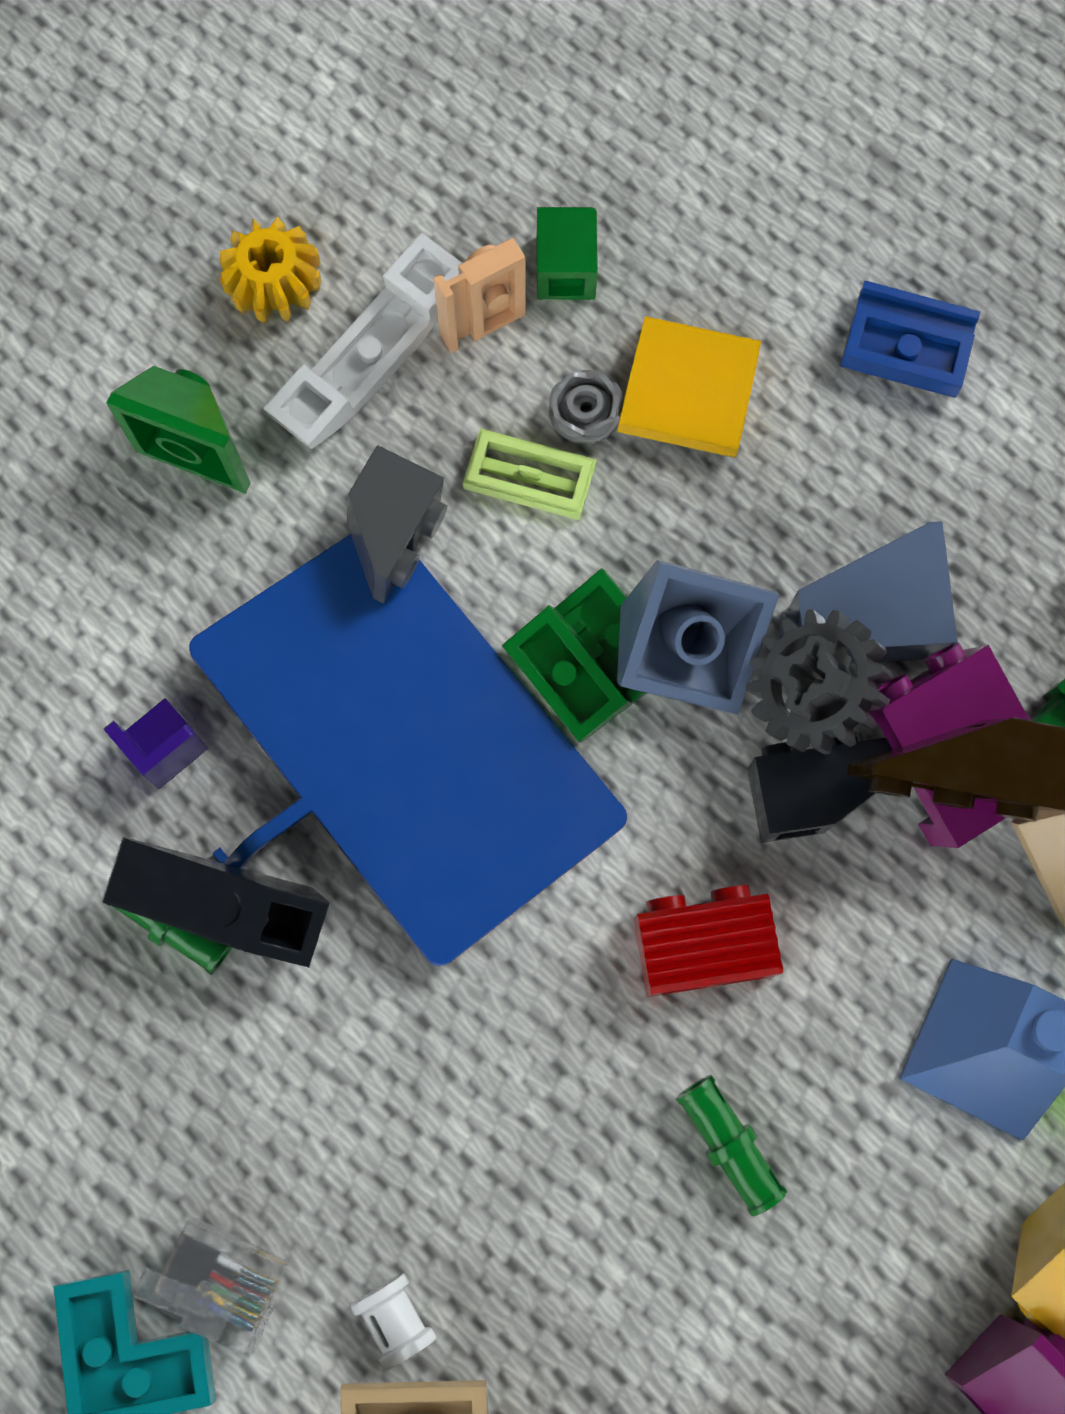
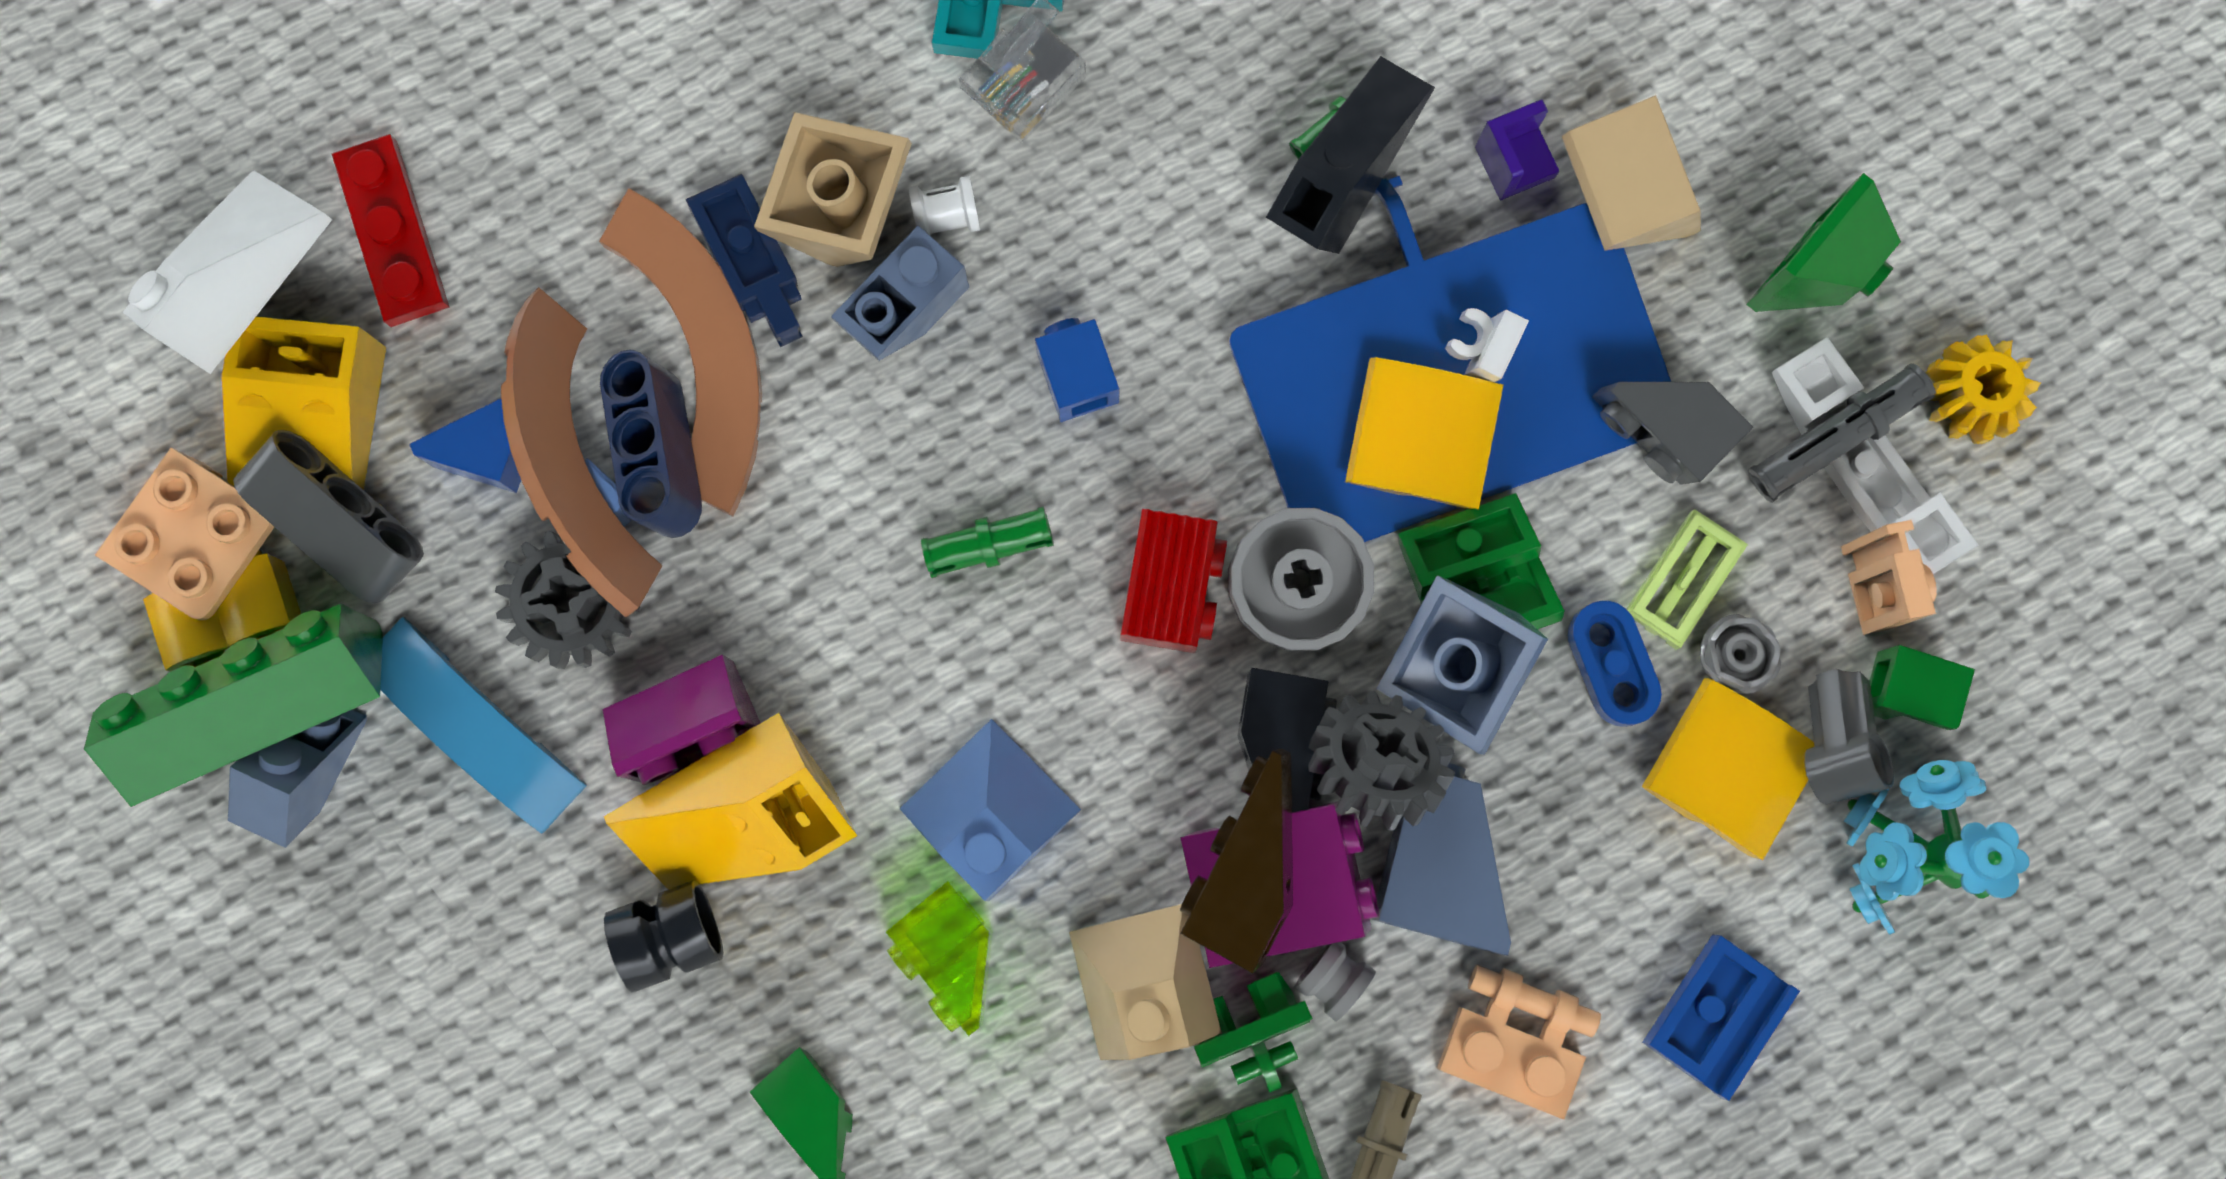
camera: 110 degrees right, 5 degrees up
(157, 622) = (1633, 177): none -> tan slope
(299, 327) = (1862, 419): none -> dark grey pin
(372, 700) = (1494, 345): none -> white tile
(477, 745) = (1424, 433): none -> yellow slope
(513, 1333) = (903, 296): none -> sand blue slope
(521, 1115) = (1077, 368): none -> blue brick
(631, 513) = (1620, 661): none -> blue plate
(650, 290) = (1847, 751): none -> dark grey piece
(697, 794) = (1337, 571): none -> light grey wheel
(738, 219) = (1902, 862): none -> medium azure plant
(1017, 498) = (1510, 1060): none -> light nougat plate
(1023, 664) = (1335, 980): none -> light grey wheel

